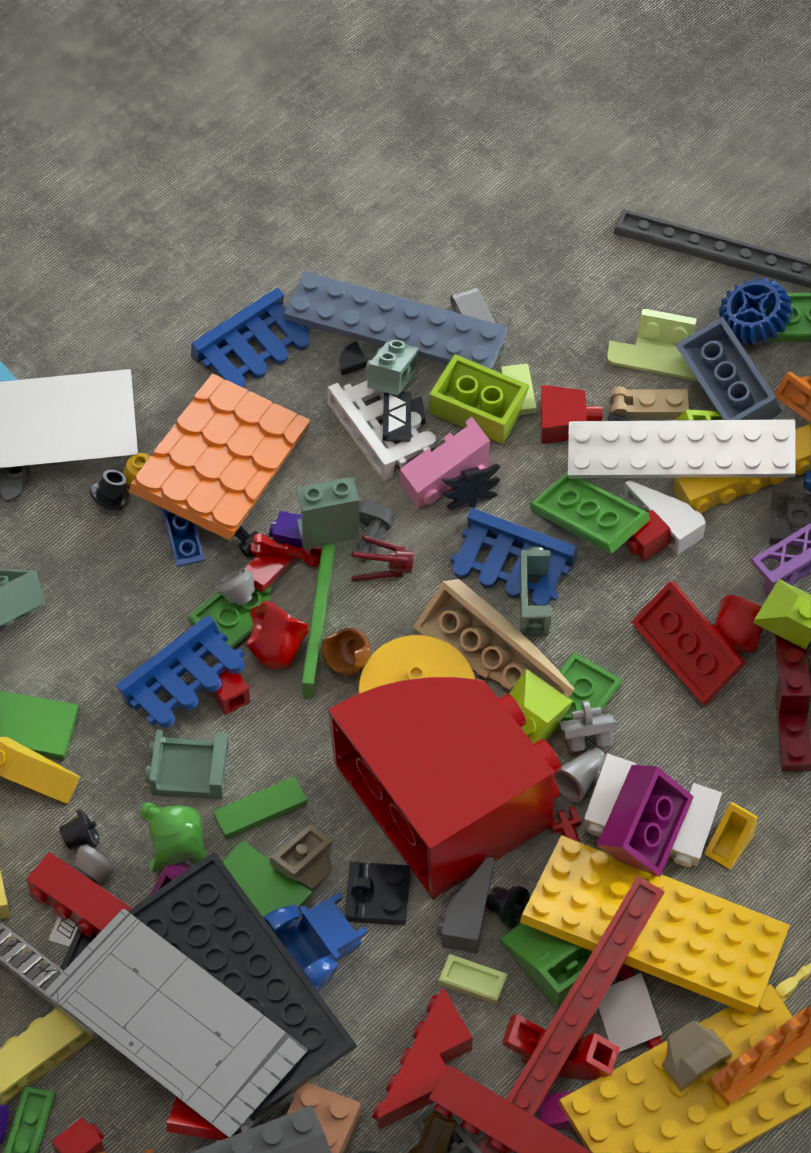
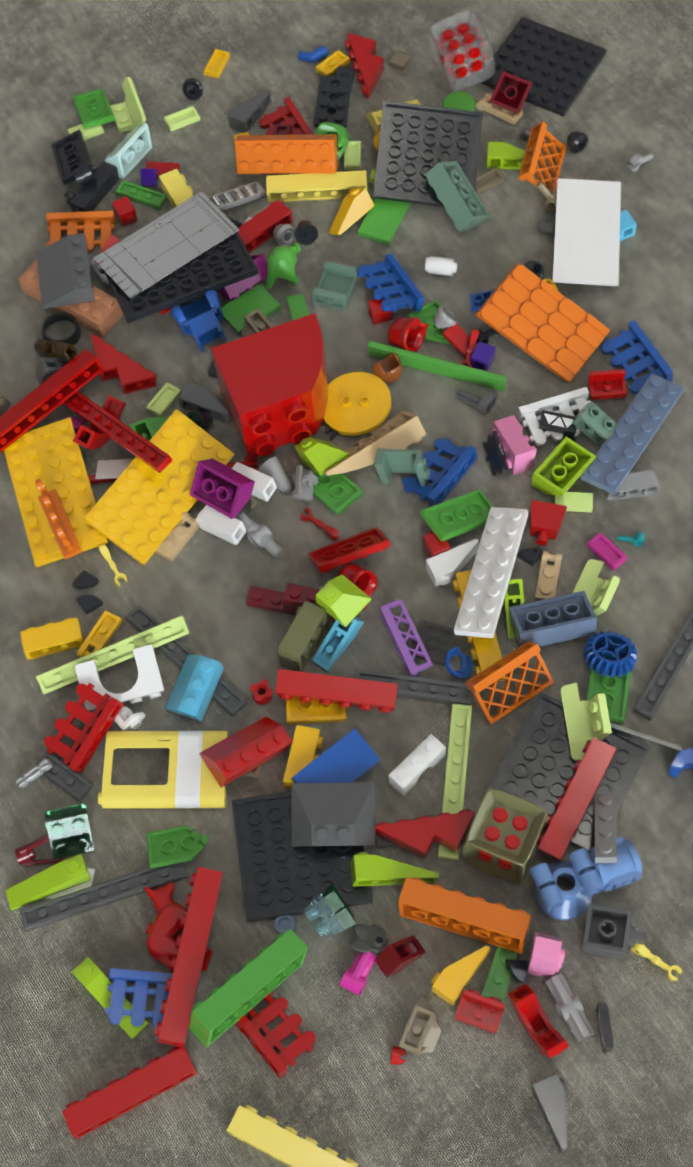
camera: 105 degrees right, 5 degrees up
(120, 619) = (440, 266): none -> white head
(311, 370) = (607, 384): none -> red bracket
(328, 512) = (475, 356): sand green panel -> none
(352, 359) = (614, 411): black tile -> none
(400, 561) = (449, 406): dark red plant -> none
(560, 307) = (638, 540): none -> teal hand
(588, 343) = (606, 551): none -> dark pink tile
(657, 681) = (330, 531): none -> red piece
(693, 1054) = (70, 484): dark tan slope -> none
(697, 766) = (260, 535): none -> light grey pin
(726, 887) = (178, 537): none -> tan plate
(732, 835) = (211, 547): yellow slope -> none

